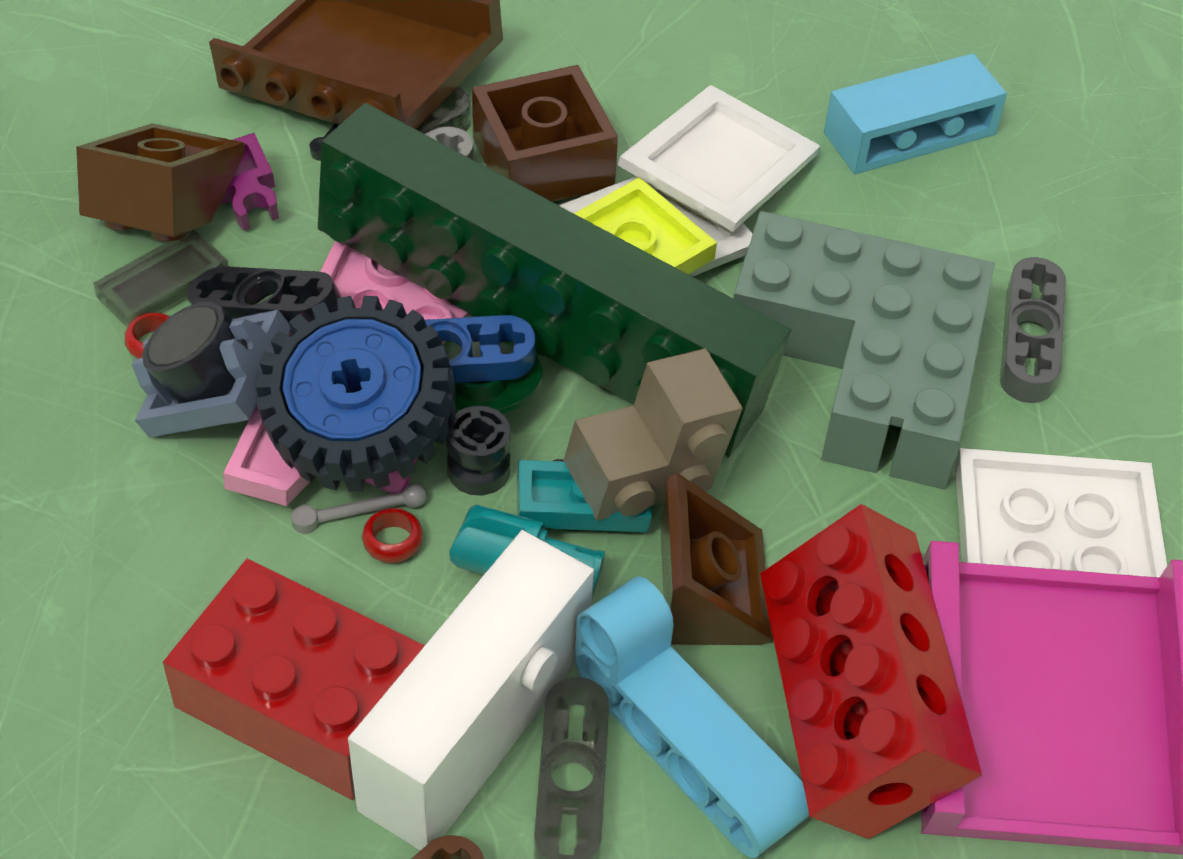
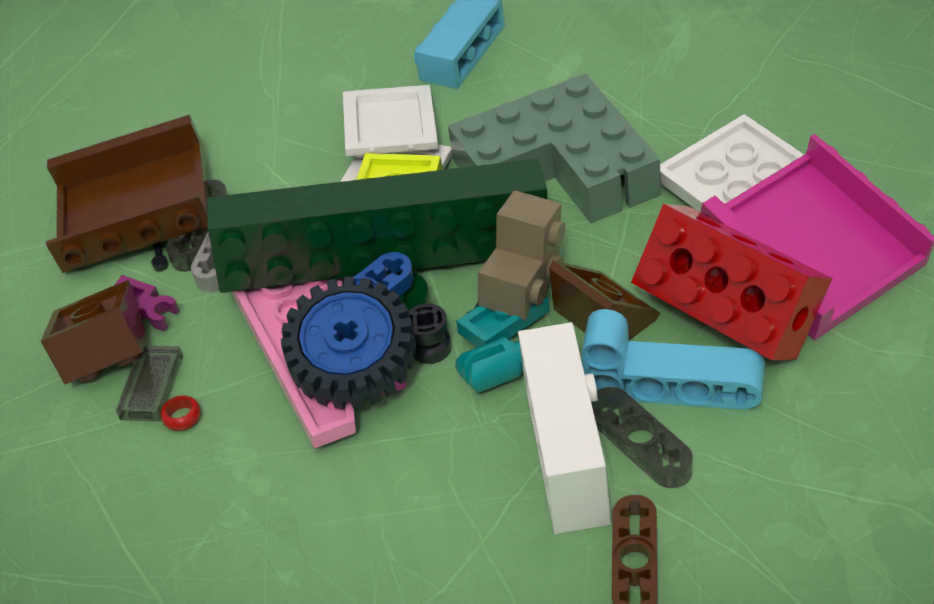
camera: 30 degrees left, 5 degrees down
(203, 368) = (243, 397): piece -> none
(243, 287) = (207, 358): black beam -> none
(286, 671) = (464, 494): red piece -> none
(306, 518) = (370, 432): light grey hinge -> none
(392, 552) = (430, 415): red piece -> none
(546, 133) = (288, 158): reddish brown brick -> none
(1019, 344) = (621, 84): dark grey beam -> none

